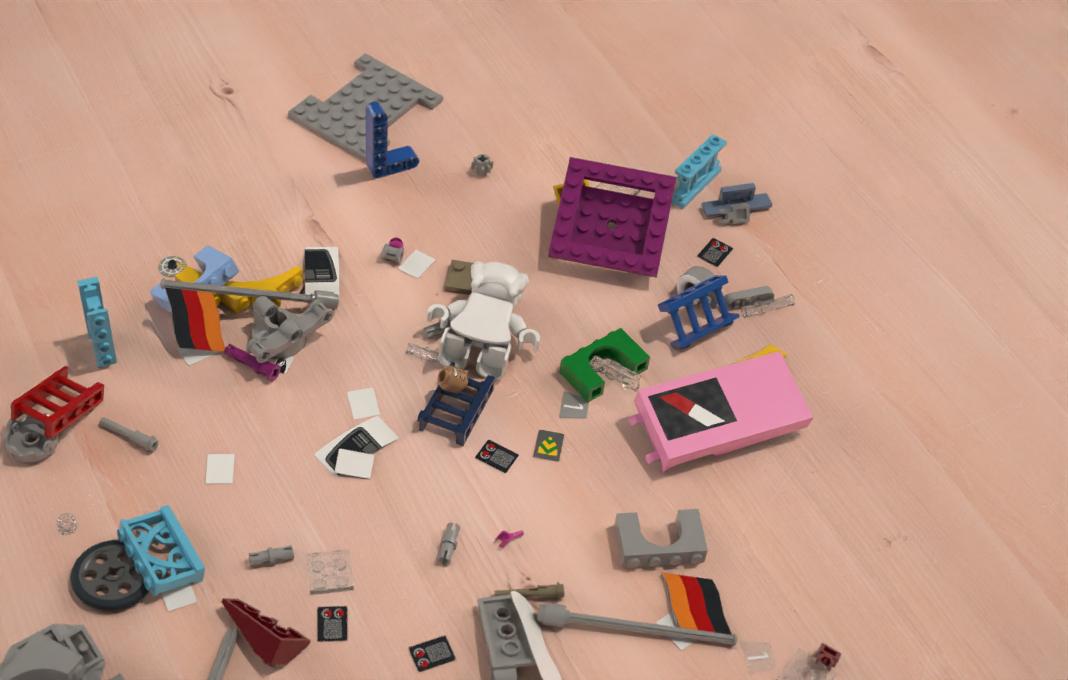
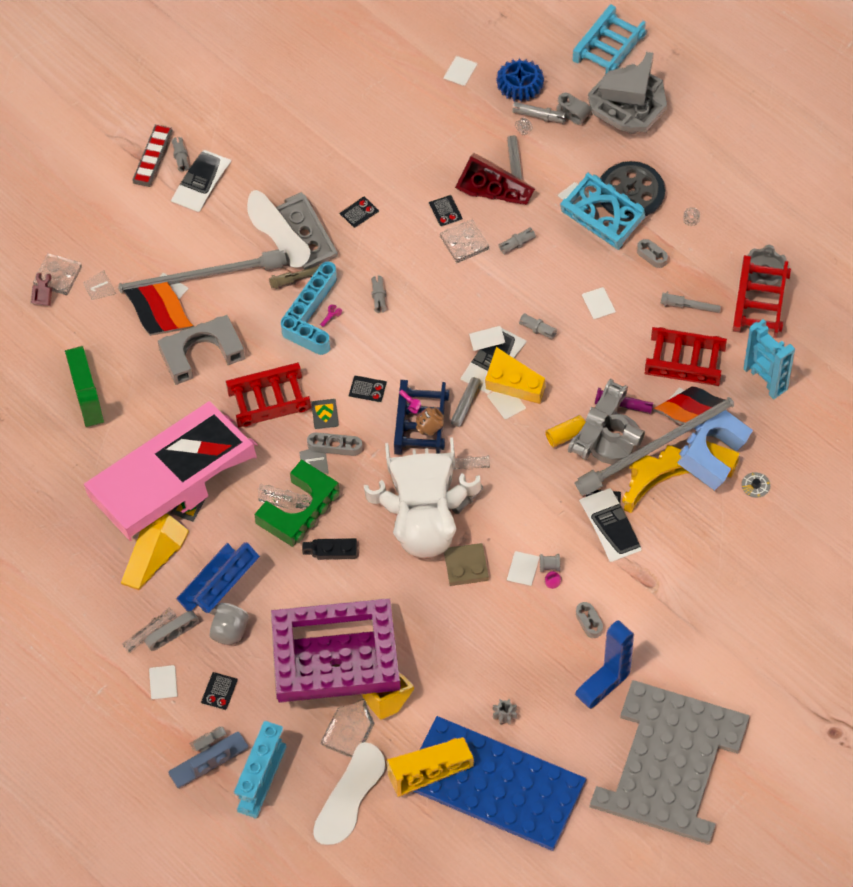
camera: 170 degrees right, 10 degrees up
(137, 496) = (651, 254): none -> light grey beam
(169, 365) = (680, 371): none -> red fence
(296, 456) = (538, 326): none -> light grey pin
(321, 350) = (564, 431): none -> yellow pin
(349, 406) = (514, 378): none -> yellow wedge
(383, 207) = (592, 618): none -> light grey beam
(404, 409) = (465, 401): none -> light grey axle
(461, 405) = (414, 403): none -> dark pink hand
(510, 132) = (505, 787): none -> blue plate
(547, 534) = (314, 291): none -> medium azure beam
(562, 134) = (428, 765): none -> yellow wedge
(565, 409) = (347, 450): none -> light grey beam
(583, 324) = (331, 548): none -> black hinge
(602, 486) = (264, 379): none -> red fence
(634, 149) = (341, 809): none -> white sticker
(762, 271) = (163, 682): none -> white sticker
(793, 526) = (84, 386): none -> green beam

